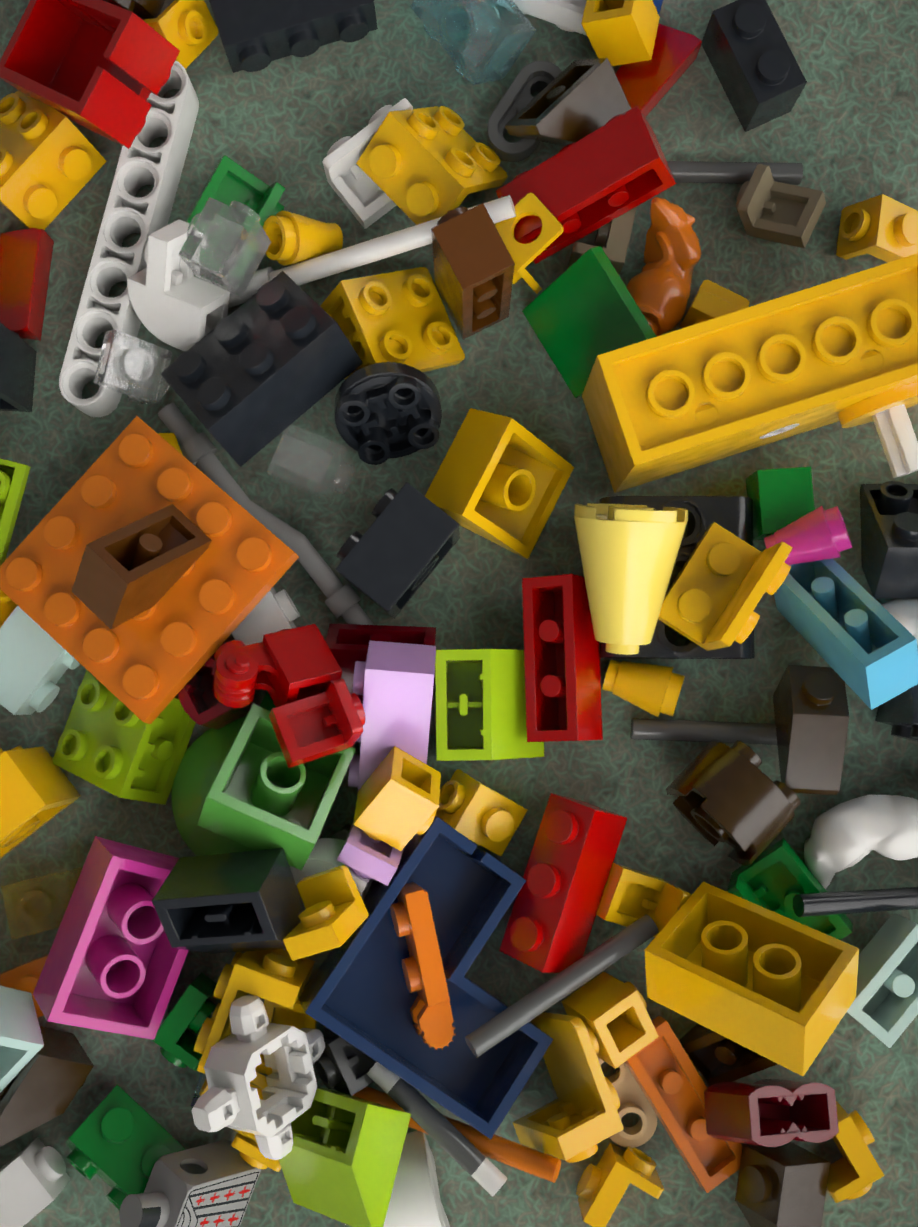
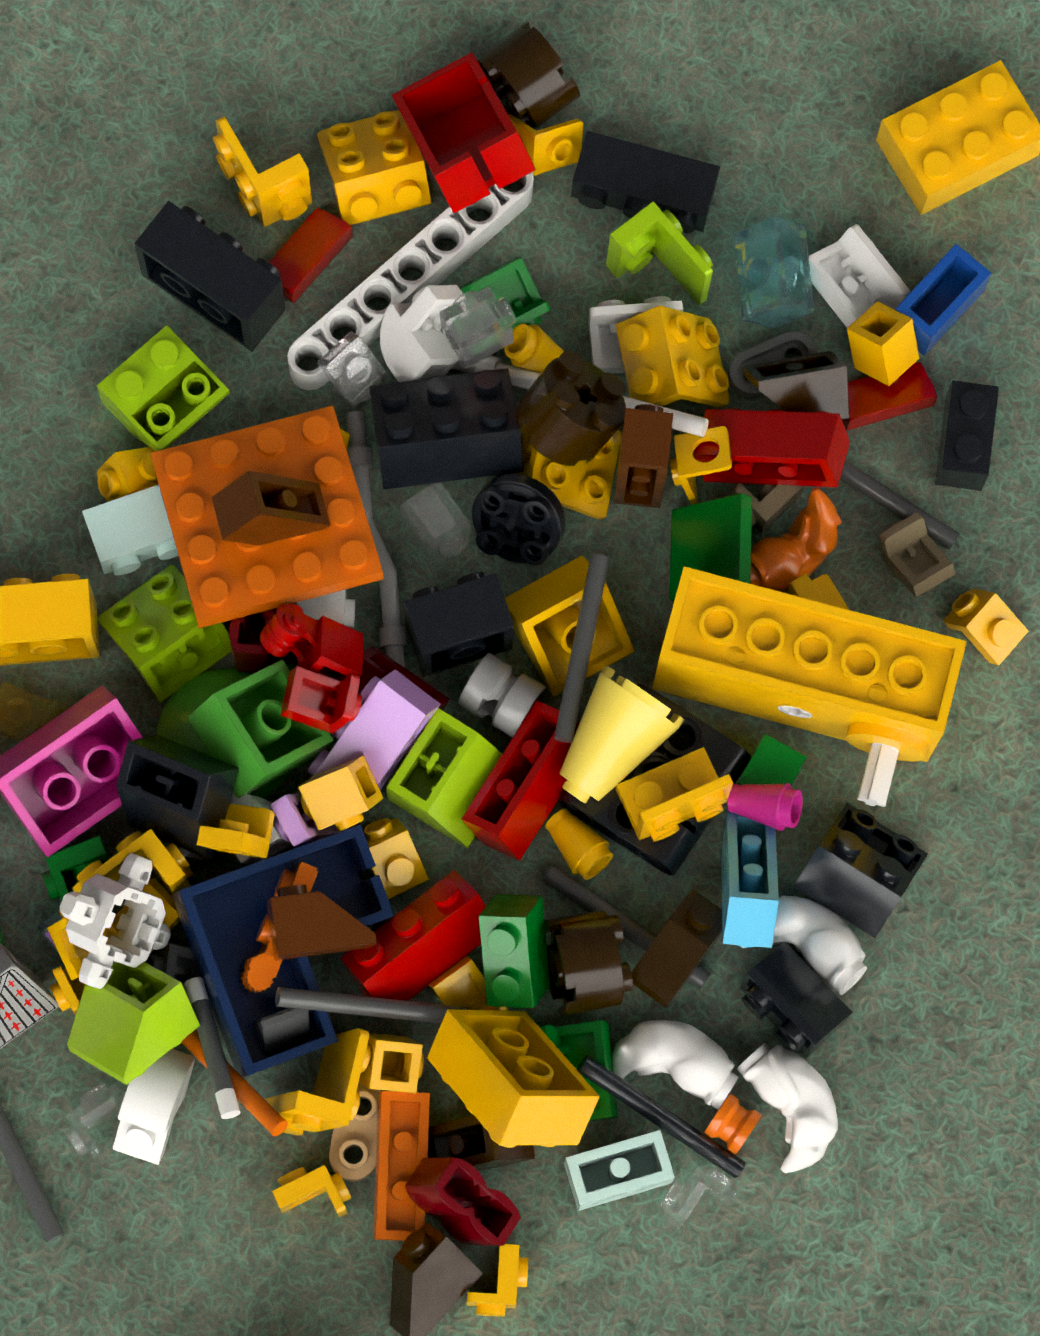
camera: 25 degrees right, 10 degrees down
(345, 49) = (661, 234): none -> lime bracket
(373, 268) = (572, 409): none -> dark brown brick
(462, 959) = (312, 925): none -> reddish brown slope
(483, 592) = (500, 694): none -> light grey wheel
(484, 1068) = (283, 1030): none -> dark grey slope
(537, 501) = (581, 648): none -> dark grey bar
(661, 837) = (514, 950): none -> green brick

